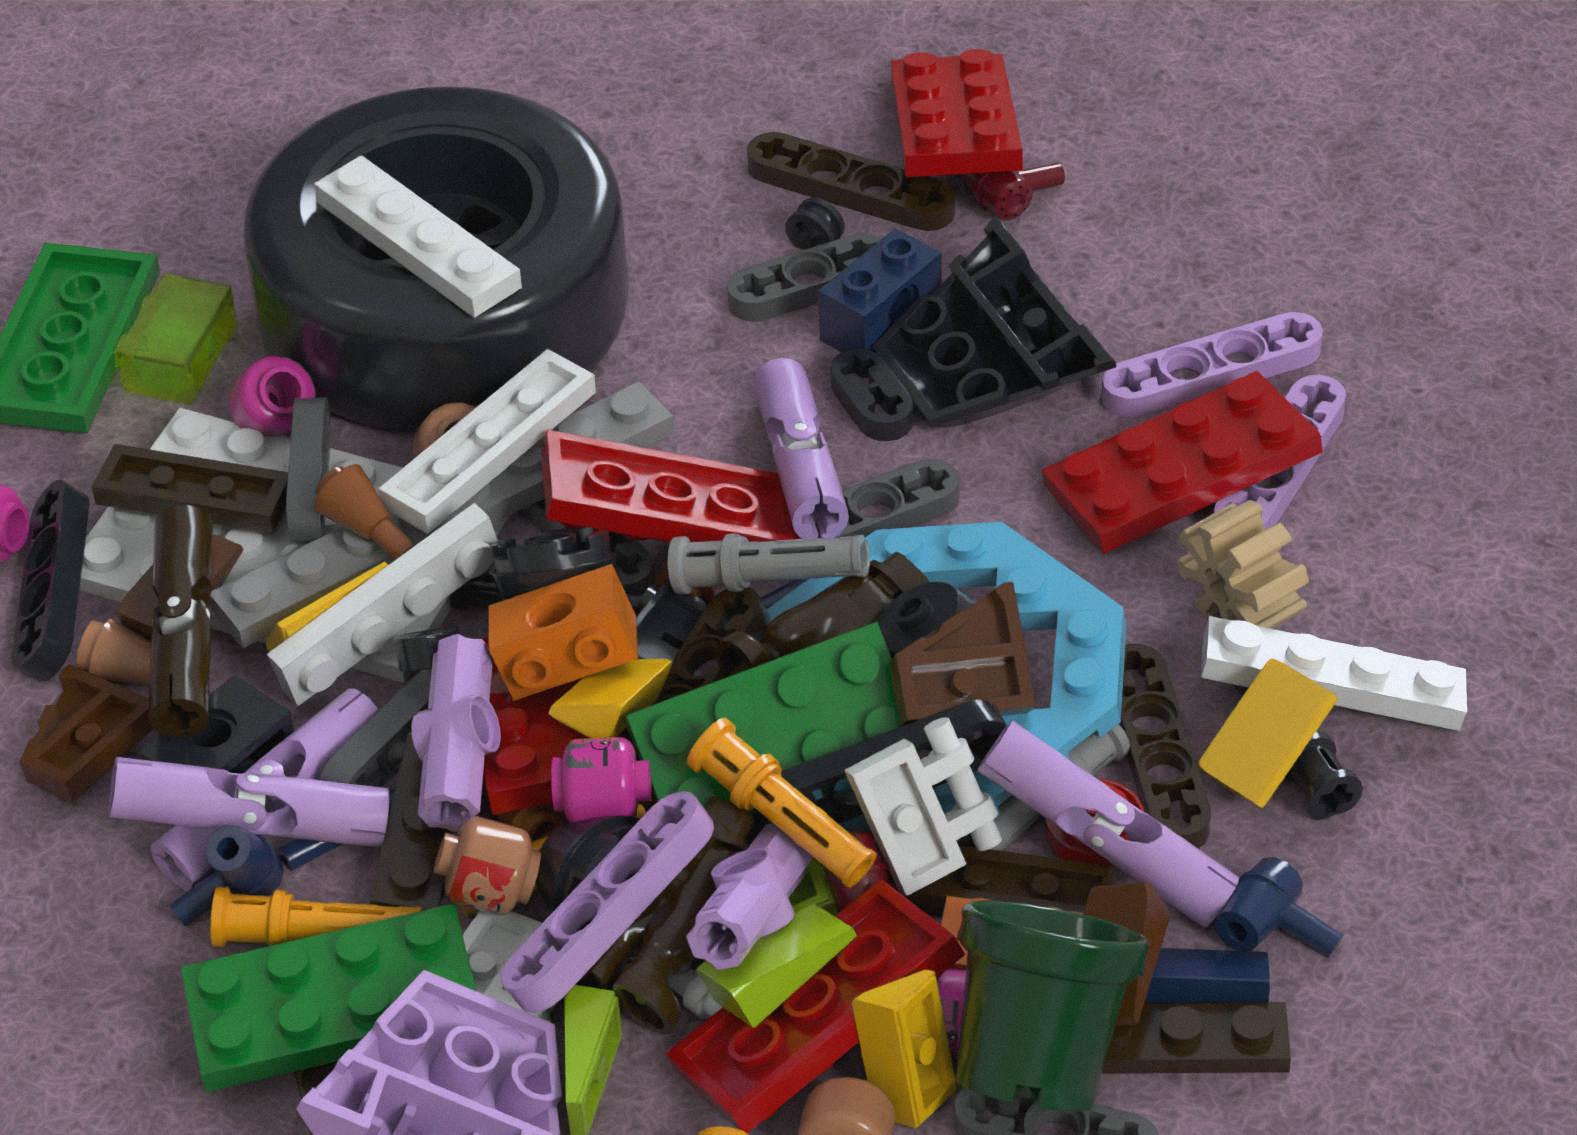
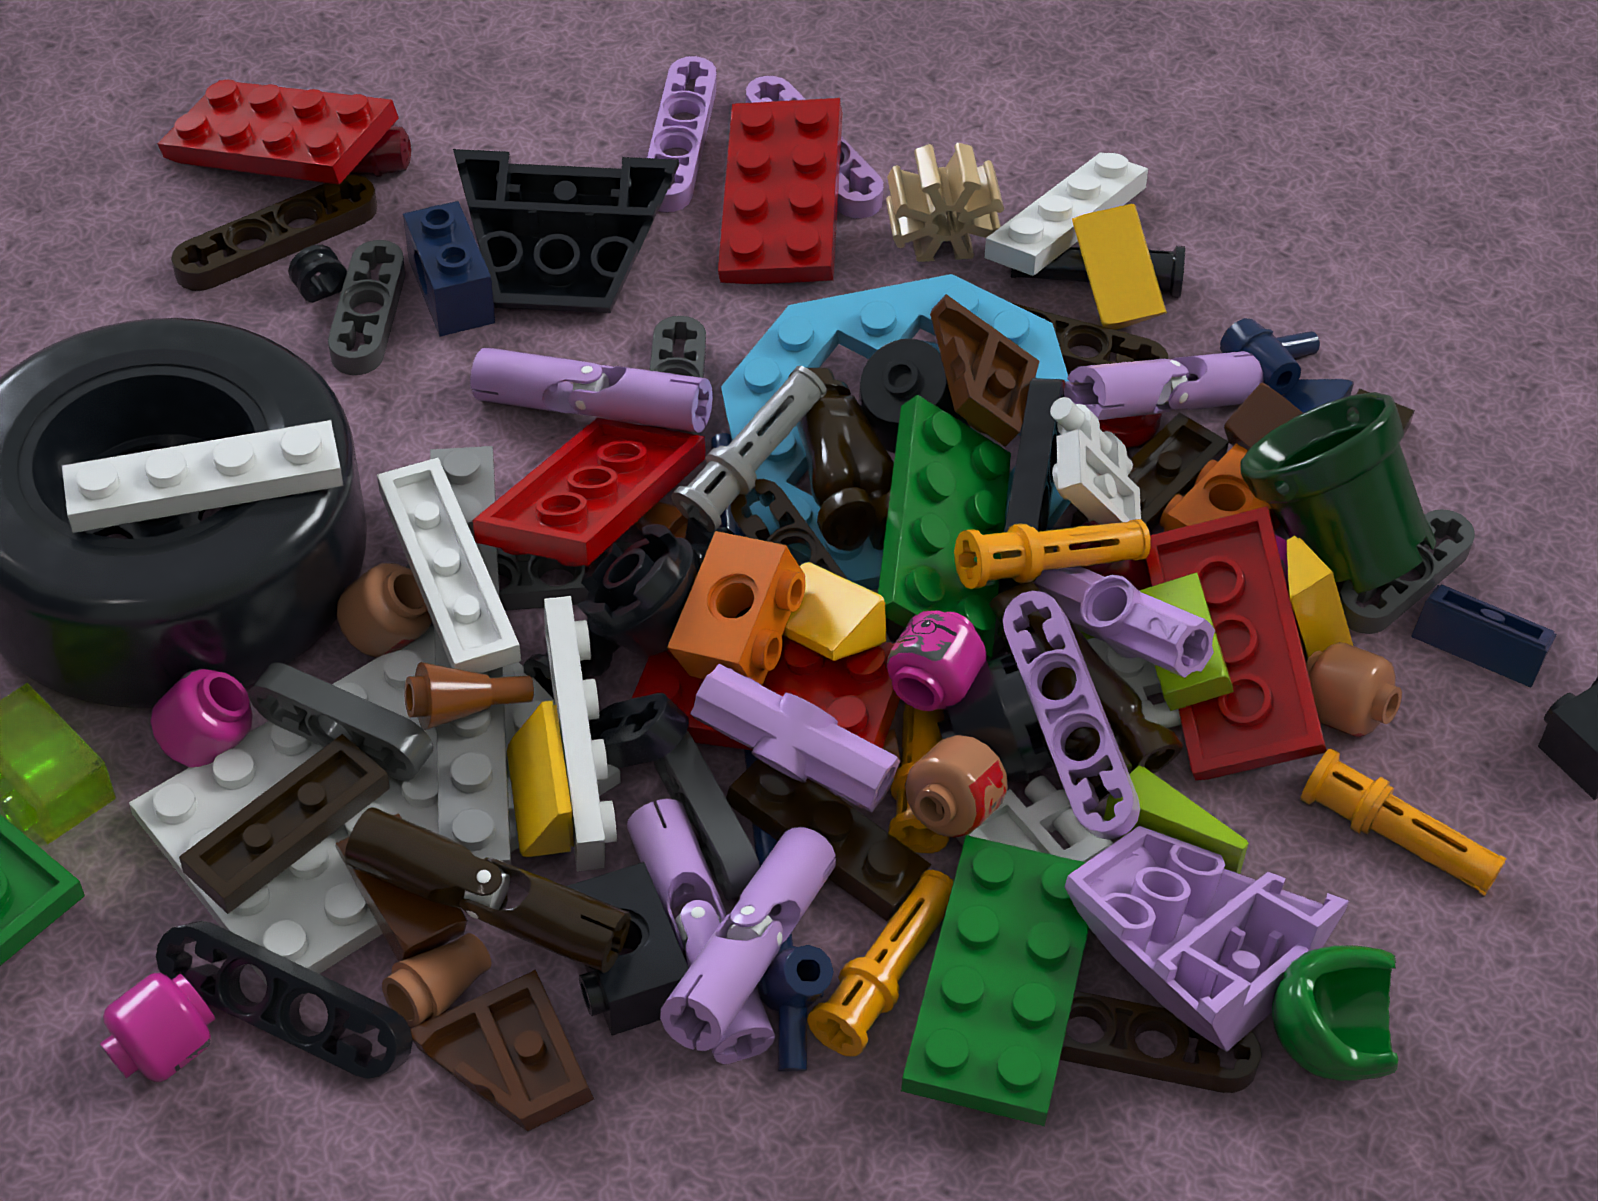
camera: 65 degrees left, 5 degrees up
(882, 389) = (542, 329): black beam -> none

